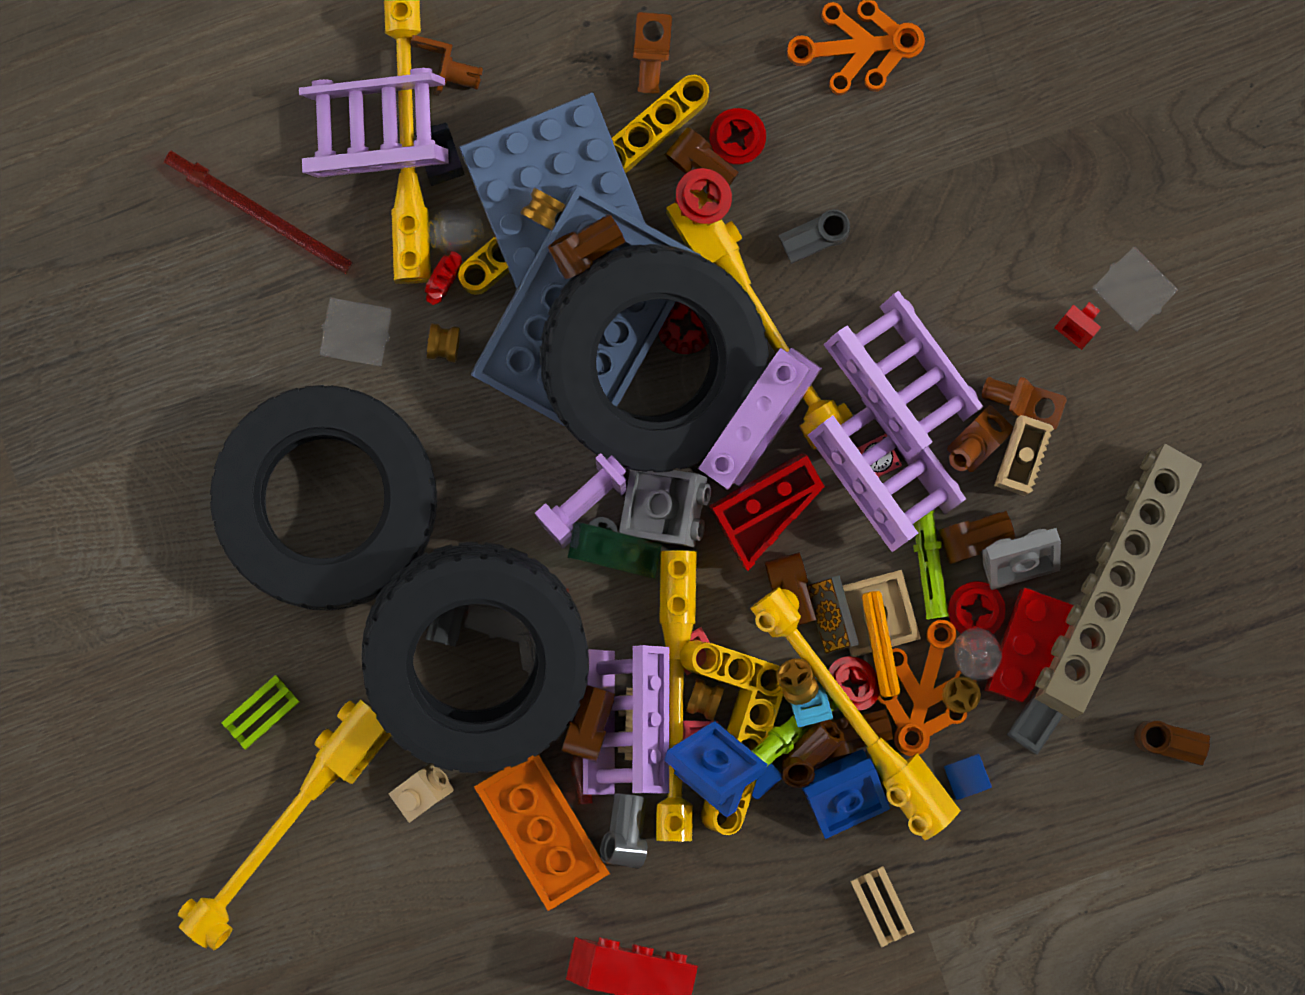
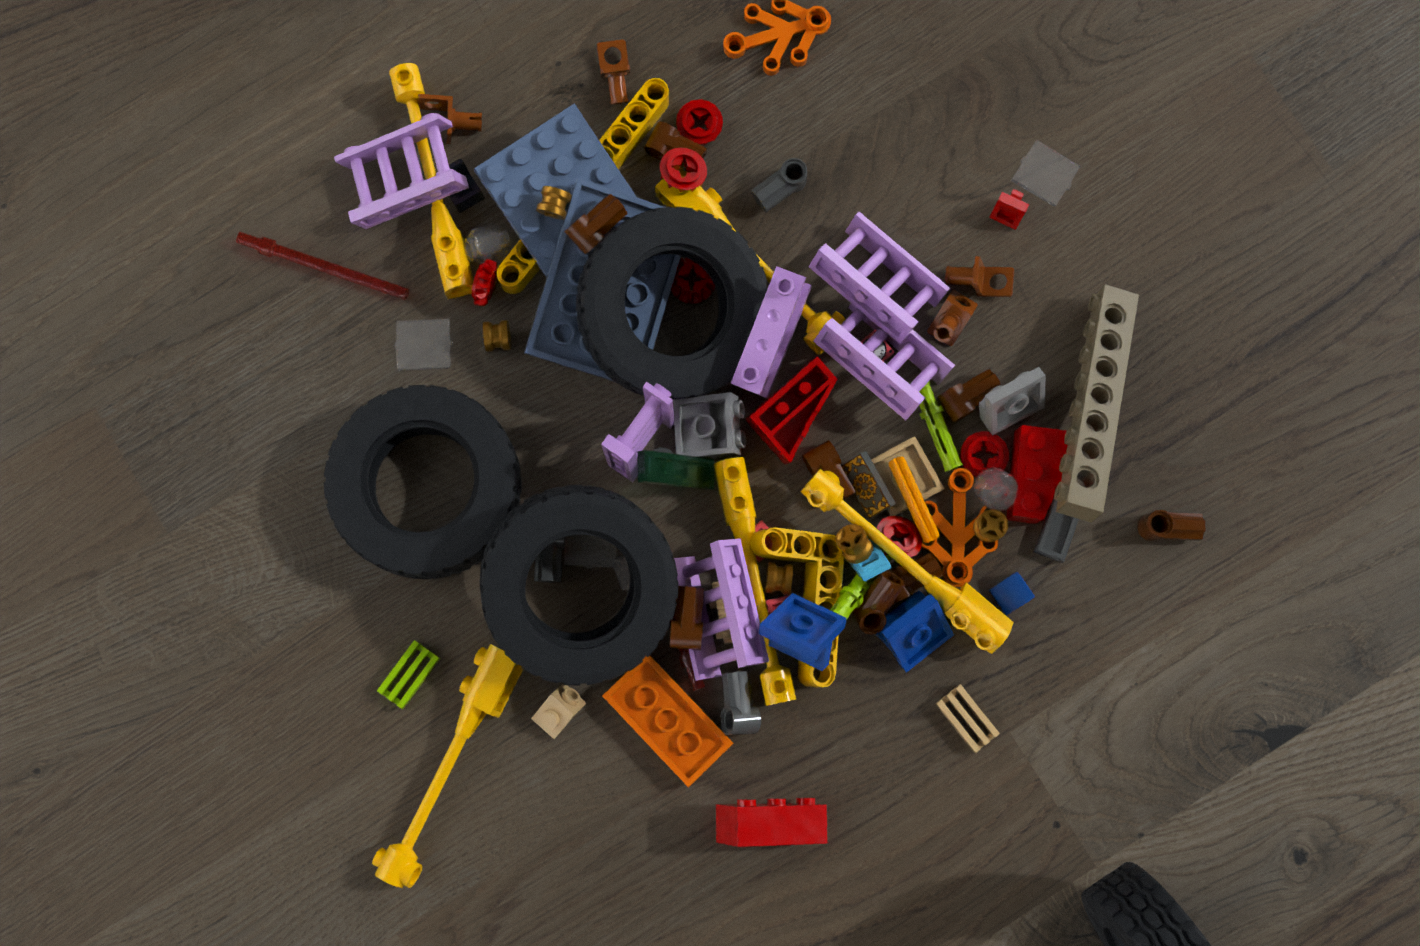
camera: 15 degrees left, 5 degrees down
(766, 781) = (847, 635): blue slope -> none
(1023, 455) = (992, 320): tan brick -> none

